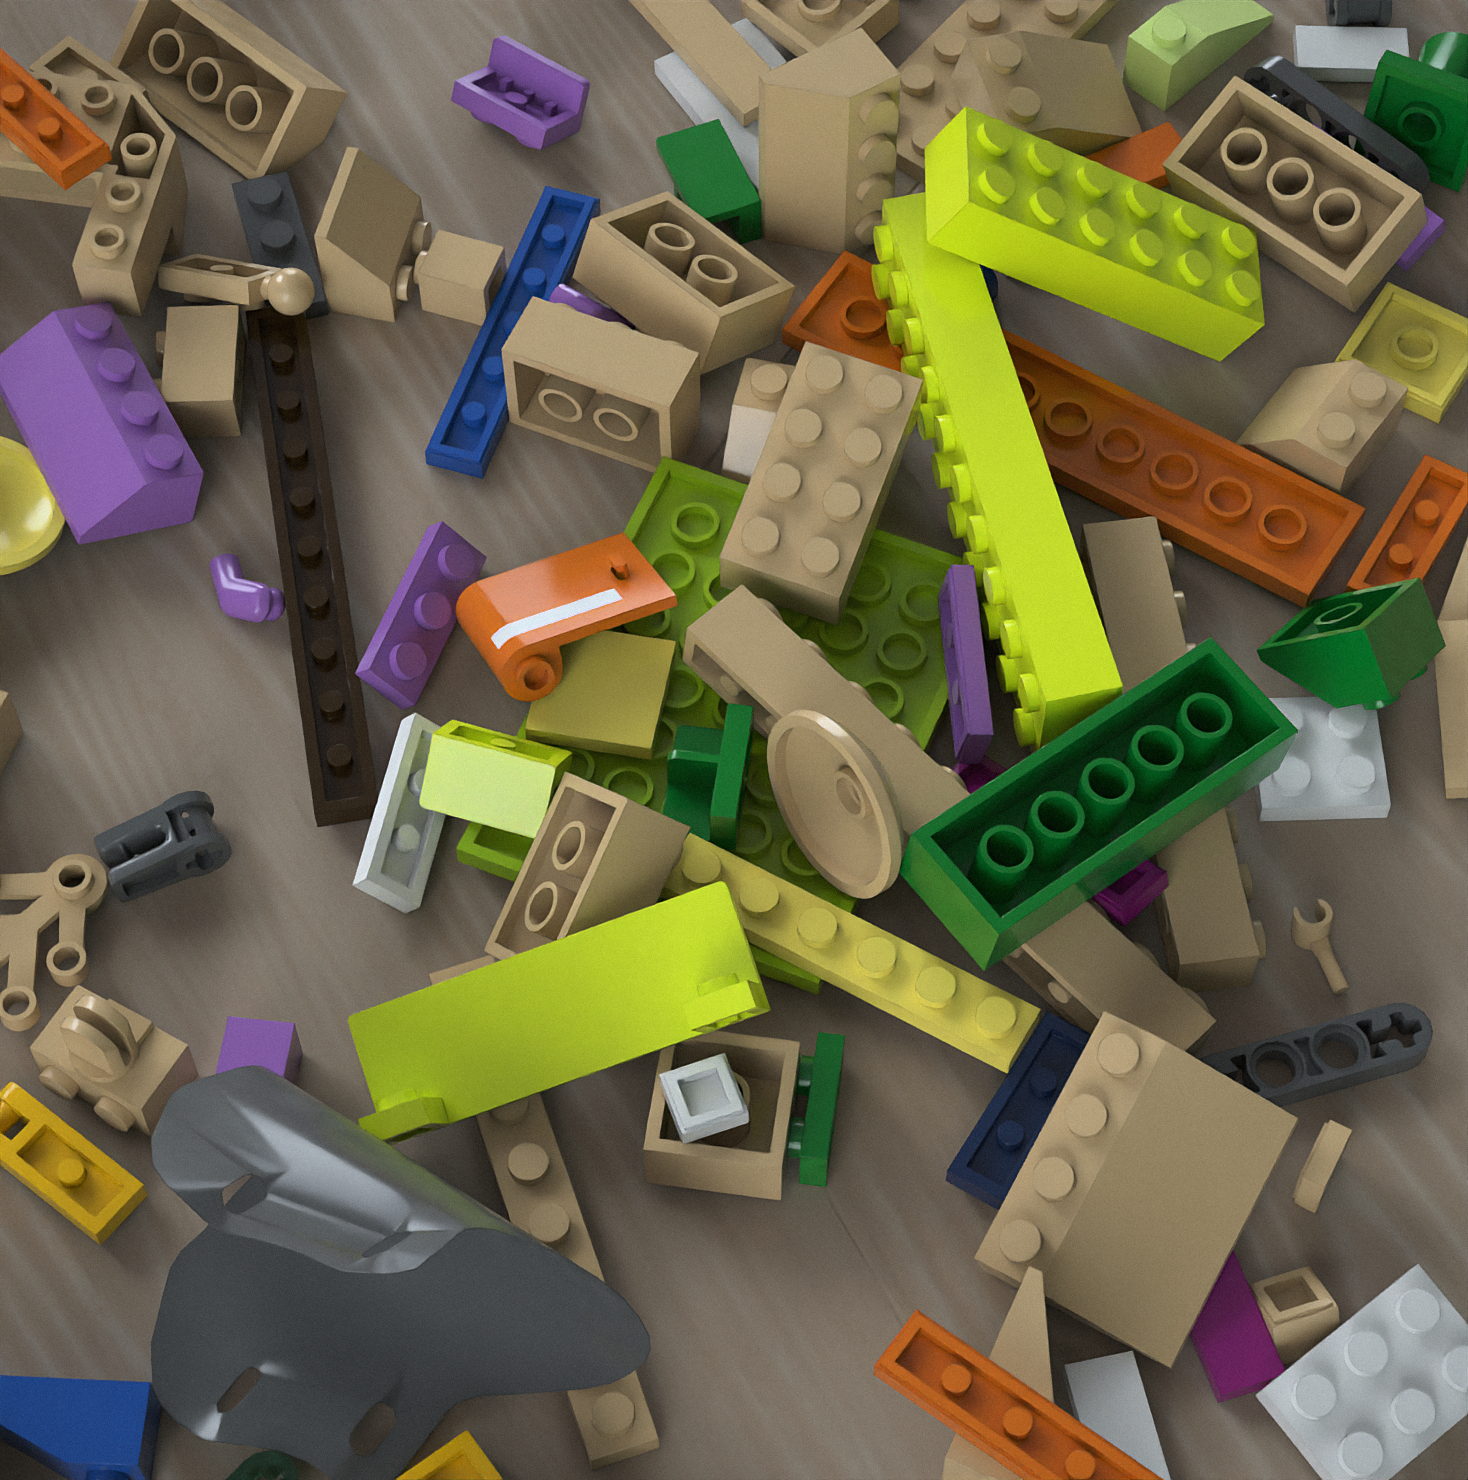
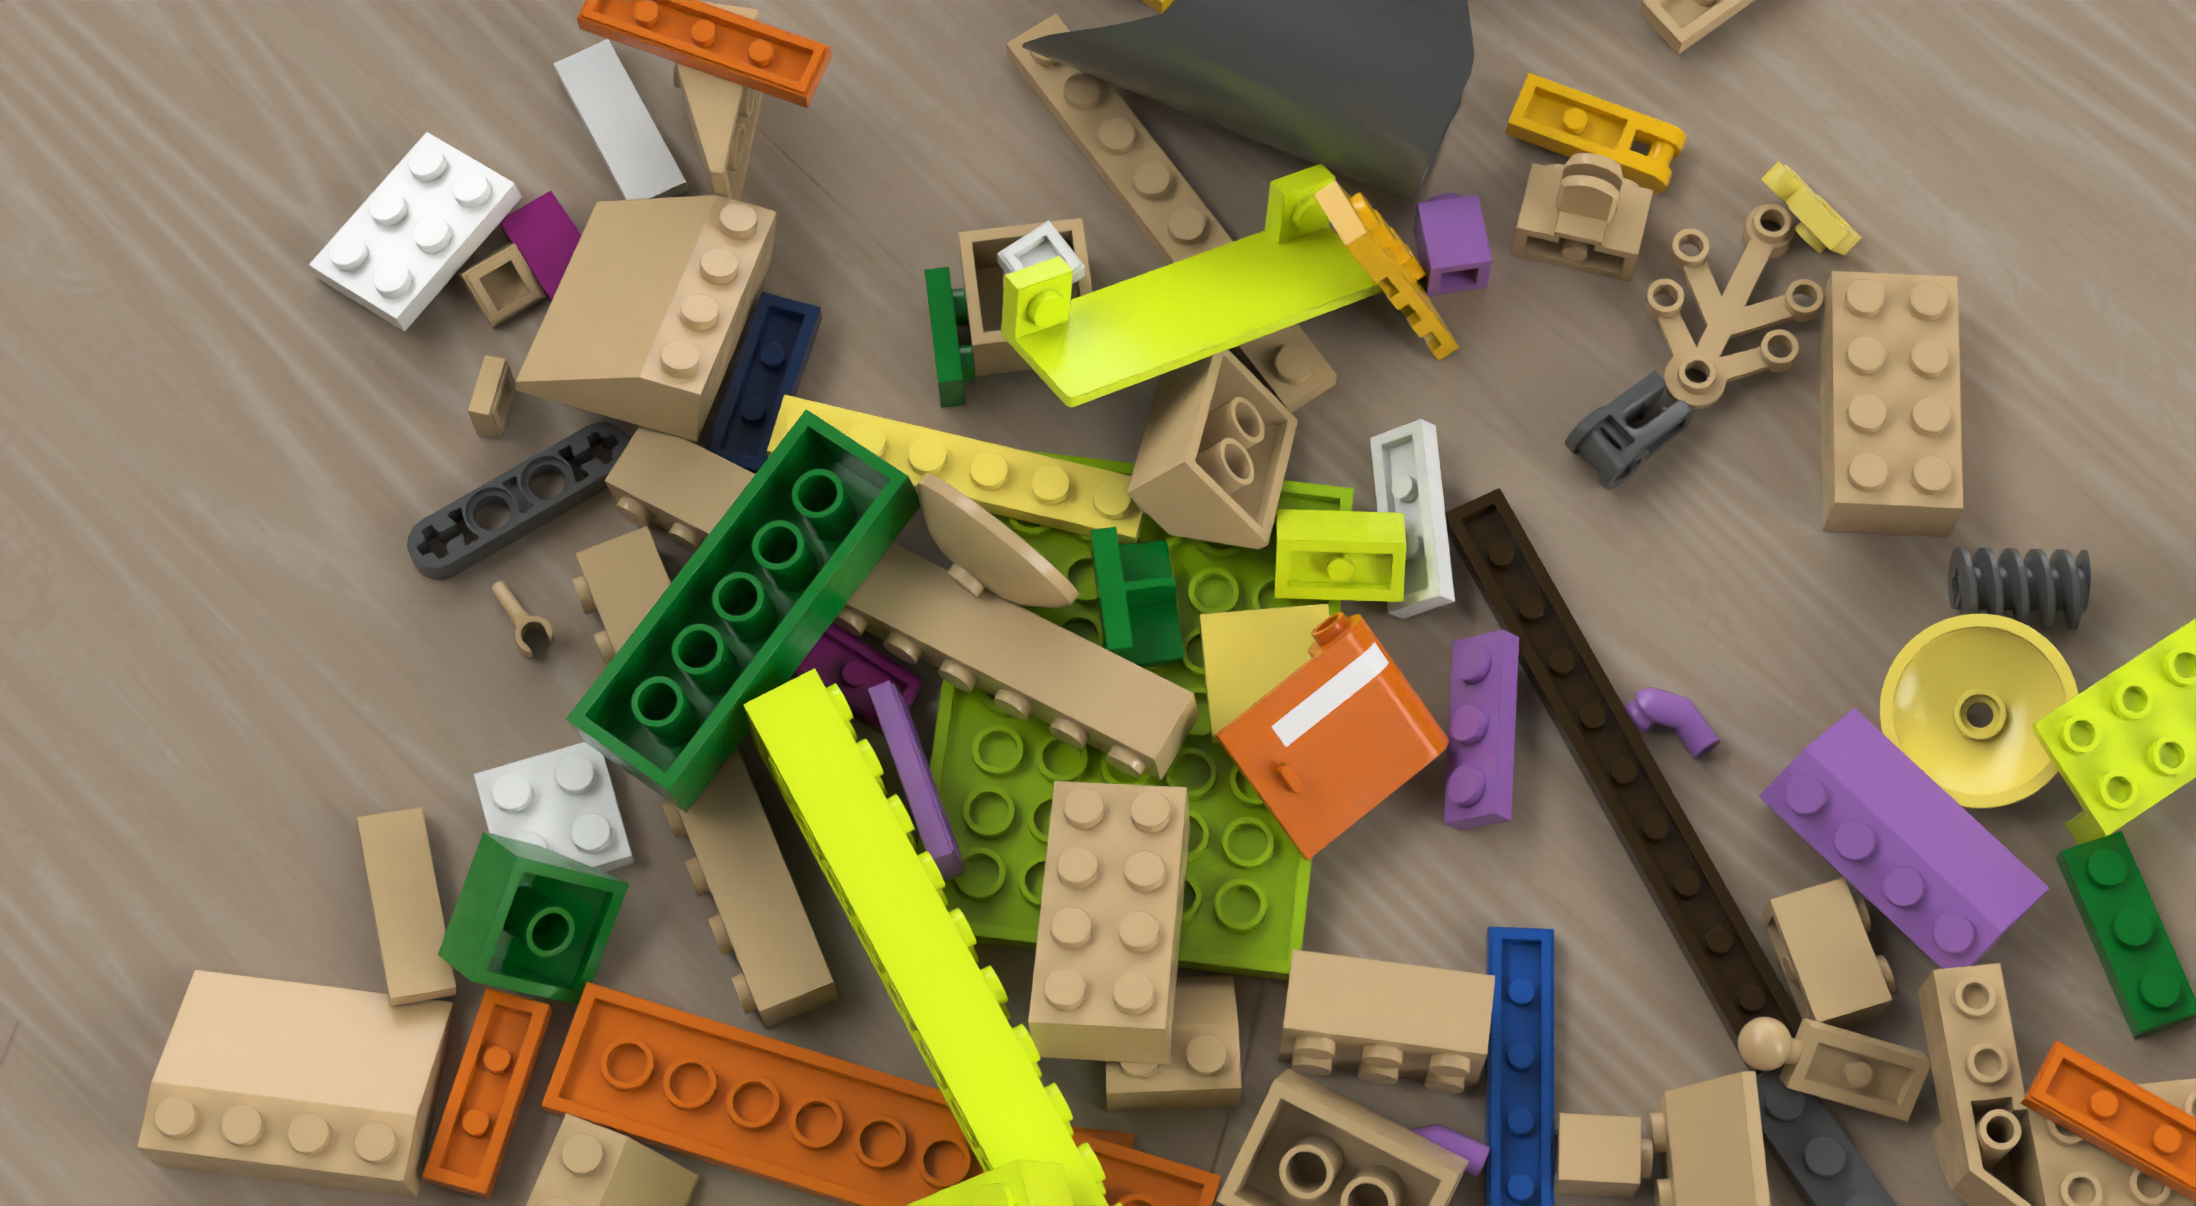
camera: 165 degrees right, 10 degrees up
(344, 999) = (1387, 263): none -> yellow wing

